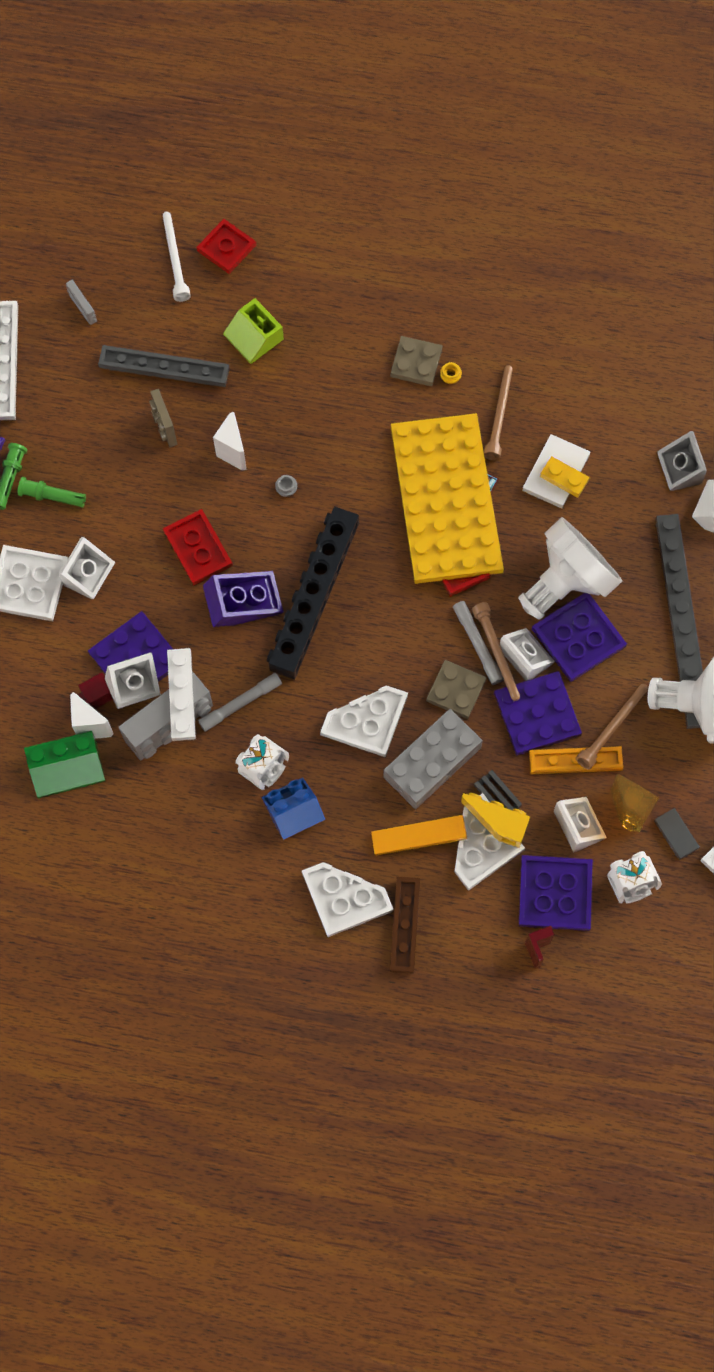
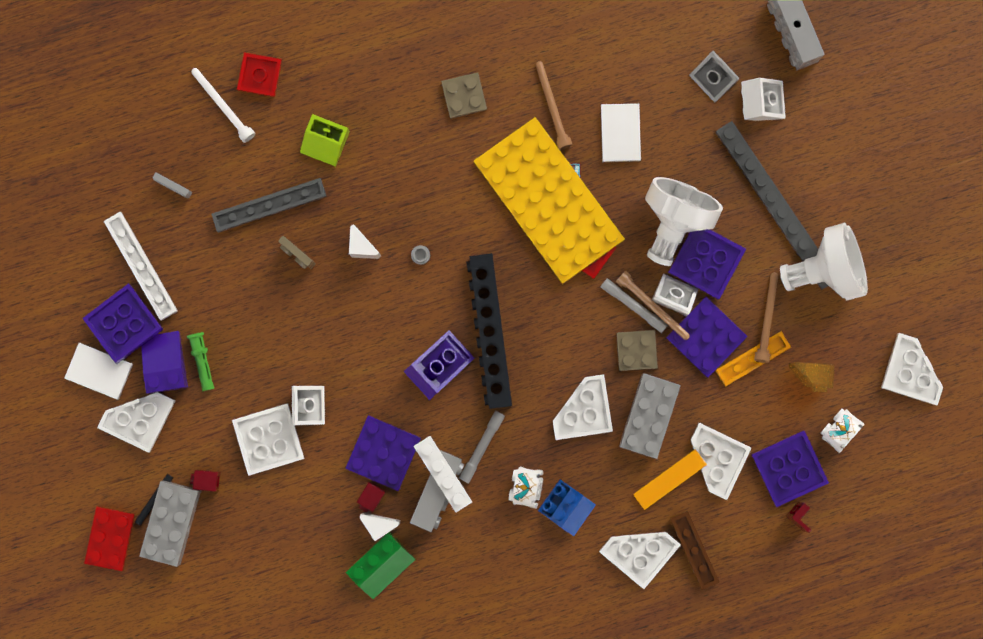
camera: 30 degrees left, 15 degrees up
(41, 490) = (234, 360): bright green pin -> none
(132, 680) = (398, 479): white slope -> none
(197, 547) = (381, 341): red plate -> none
(450, 367) = (496, 86): yellow plate -> none
(491, 775) = (725, 422): dark grey tile -> none
(504, 824) = (729, 440): yellow slope -> none
(564, 477) = (631, 136): yellow plate -> none
(579, 823) = (781, 406): white slope -> none
(676, 834) = (854, 376): dark grey tile -> none

